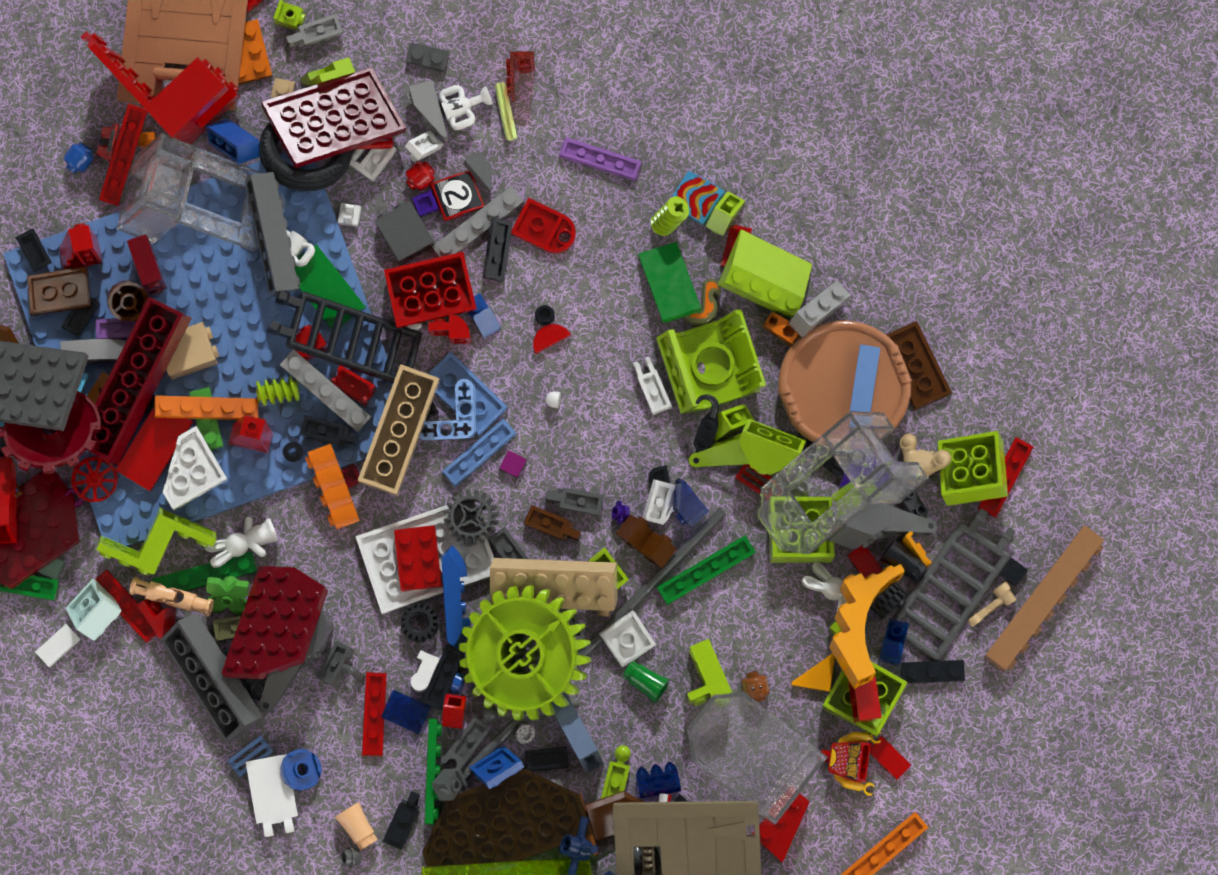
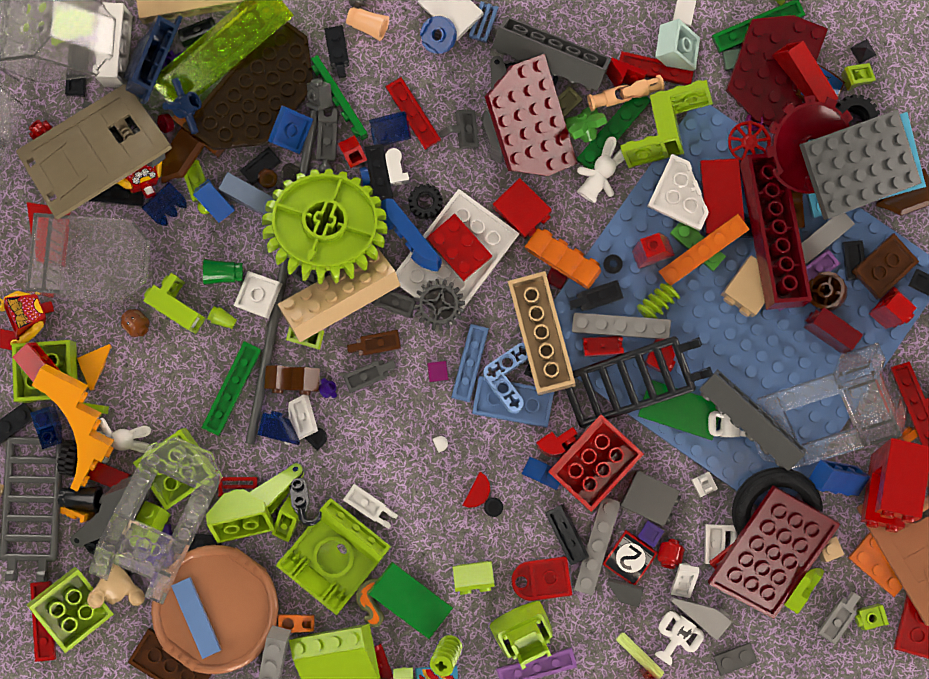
camera: 150 degrees right, 5 degrees up
(337, 556) = (522, 209): none -> red brick
(548, 741) = (267, 178): none -> reddish brown tile
(589, 194) = (522, 631): none -> lime piece
(602, 265) = (473, 576): none -> lime slope
(607, 857) = (165, 123): none -> dark red tile
(610, 748) = (213, 201): none -> blue hinge
(674, 640) = (222, 318): none -> lime cone

